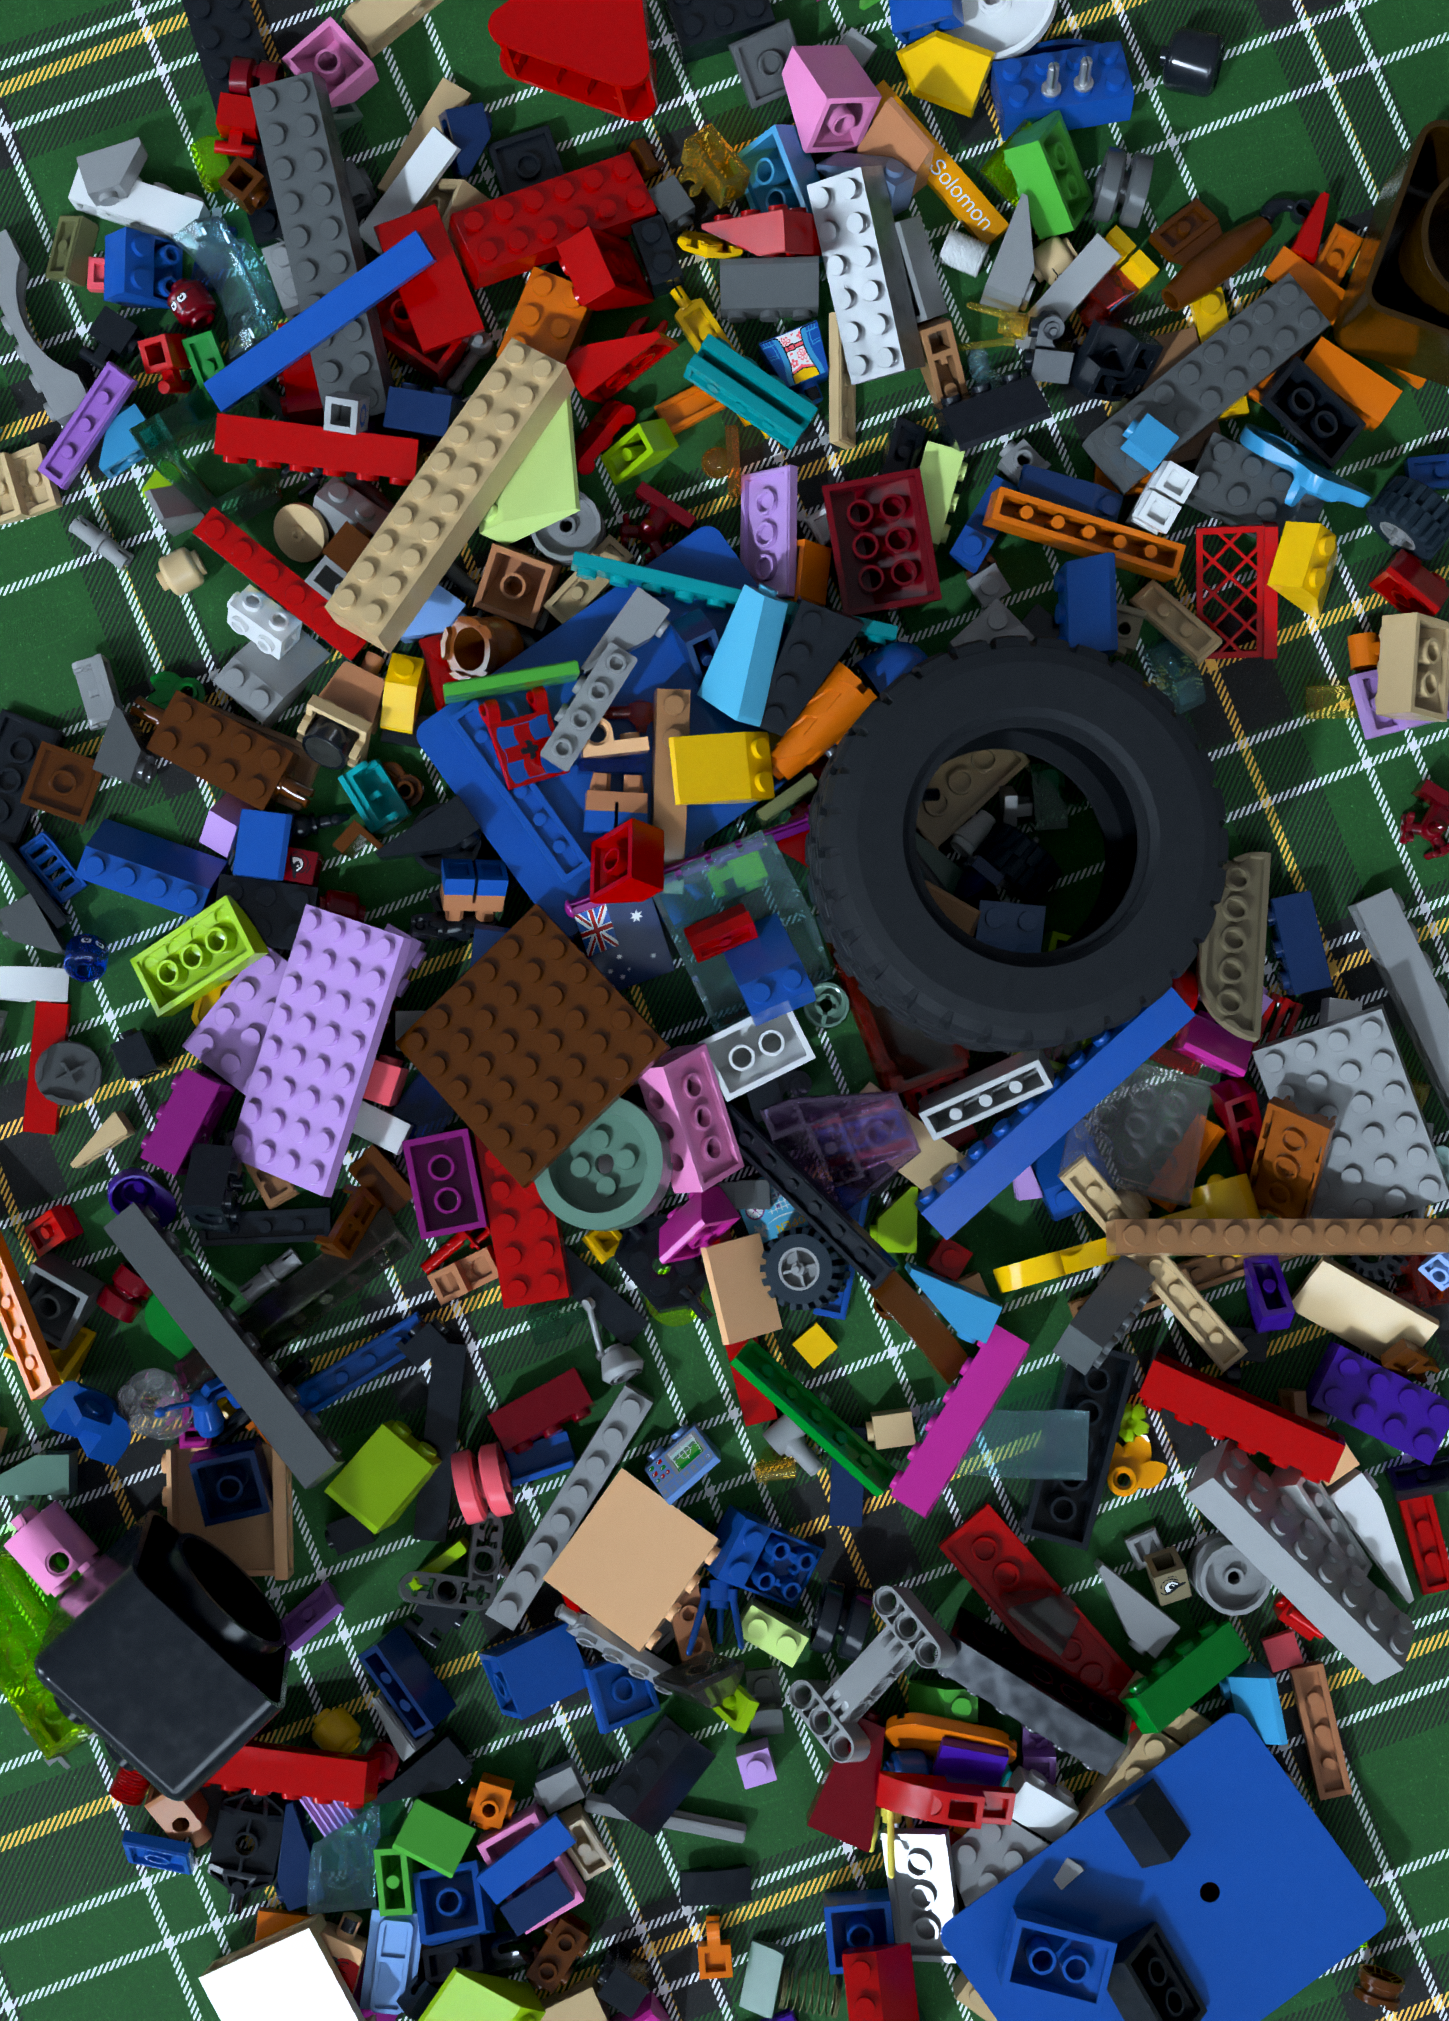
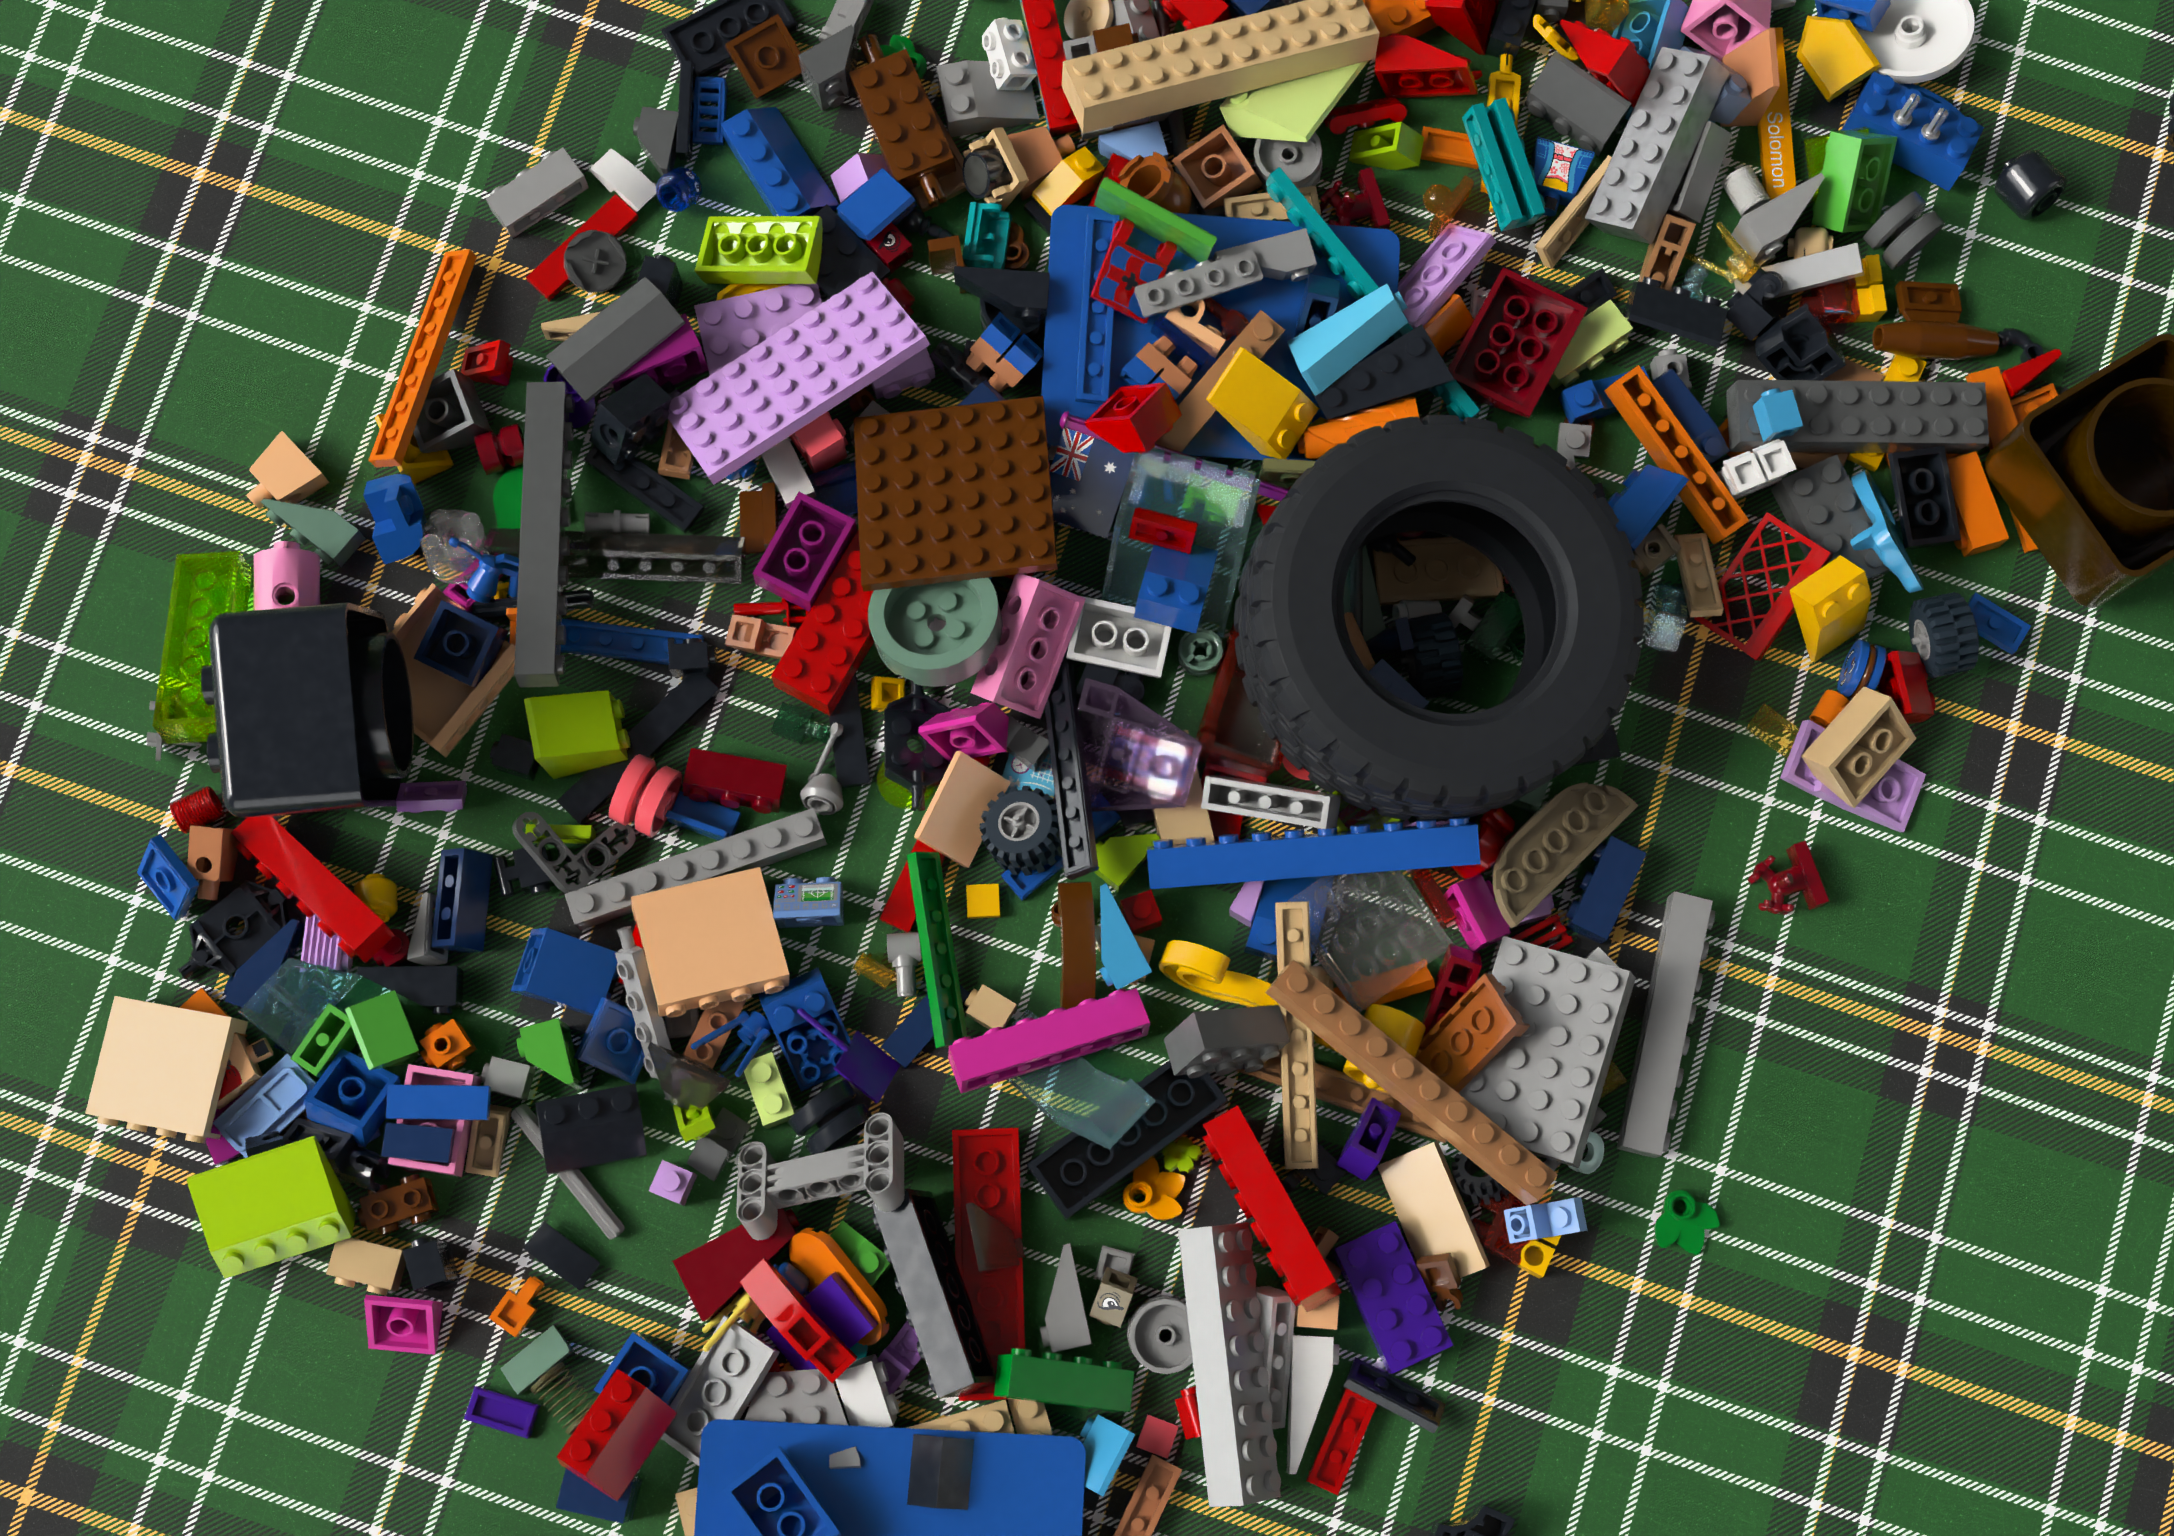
camera: 35 degrees right, 10 degrees down
(146, 1137) = (616, 339): none -> dark grey slope
(351, 1223) = (709, 526): reddish brown hinge -> none
(578, 1745) = (552, 1050): none -> bright green slope
(830, 1553) = (861, 1061): none -> dark purple piece
(1366, 598) = (1861, 668): none -> blue head

